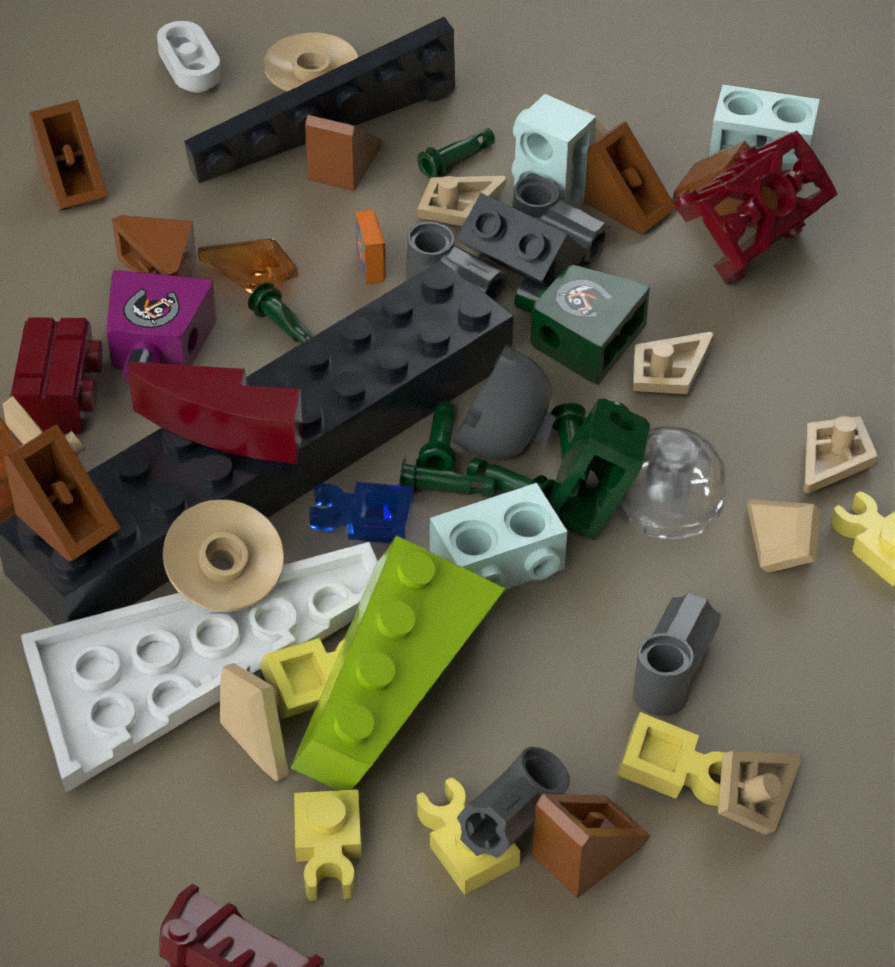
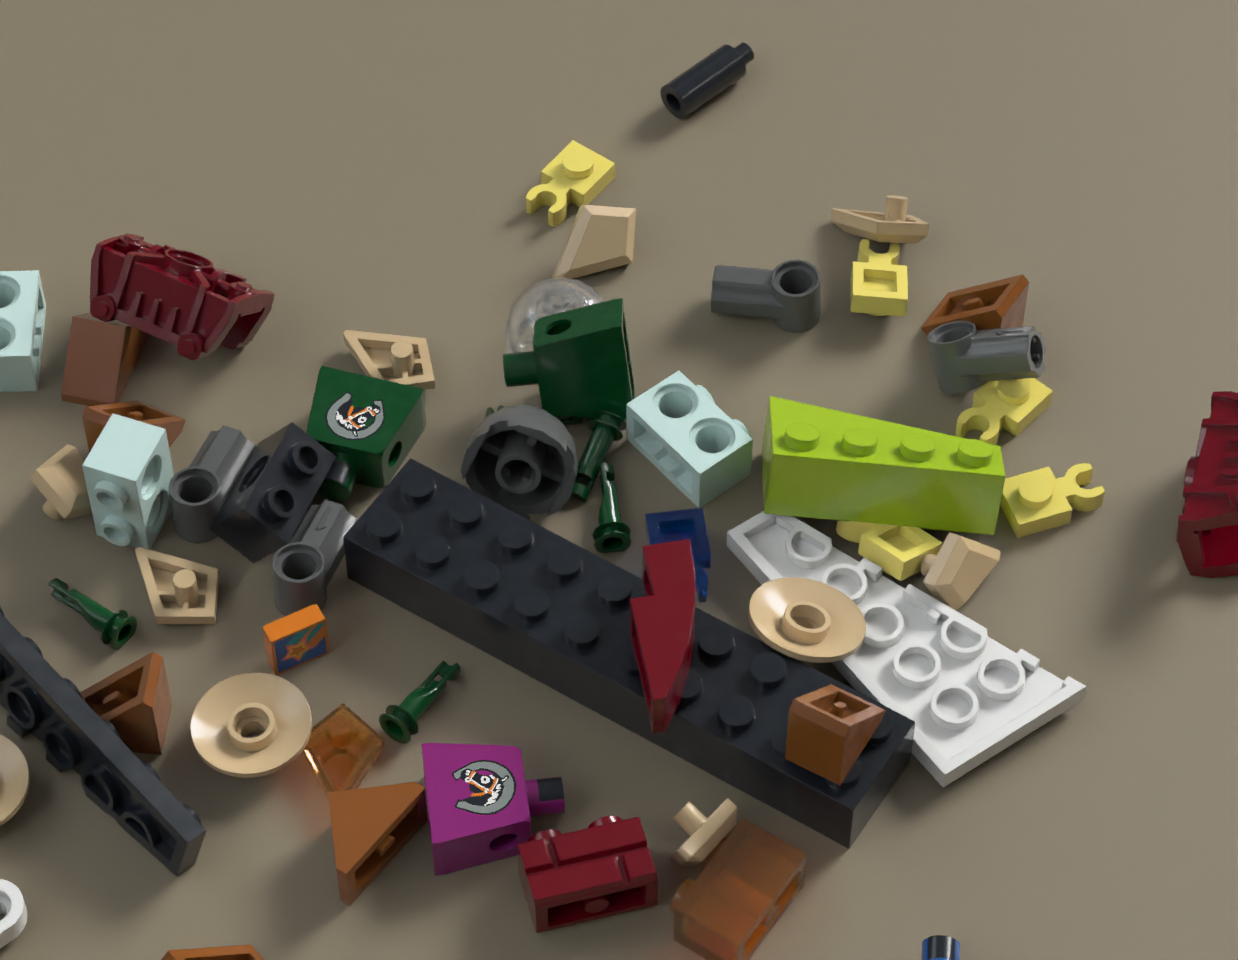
camera: 105 degrees left, 5 degrees up
(294, 208) = (248, 706): none -> tan dish
(437, 451) = (570, 519): dark green piece -> none
(836, 451) = (475, 224): tan piece -> none

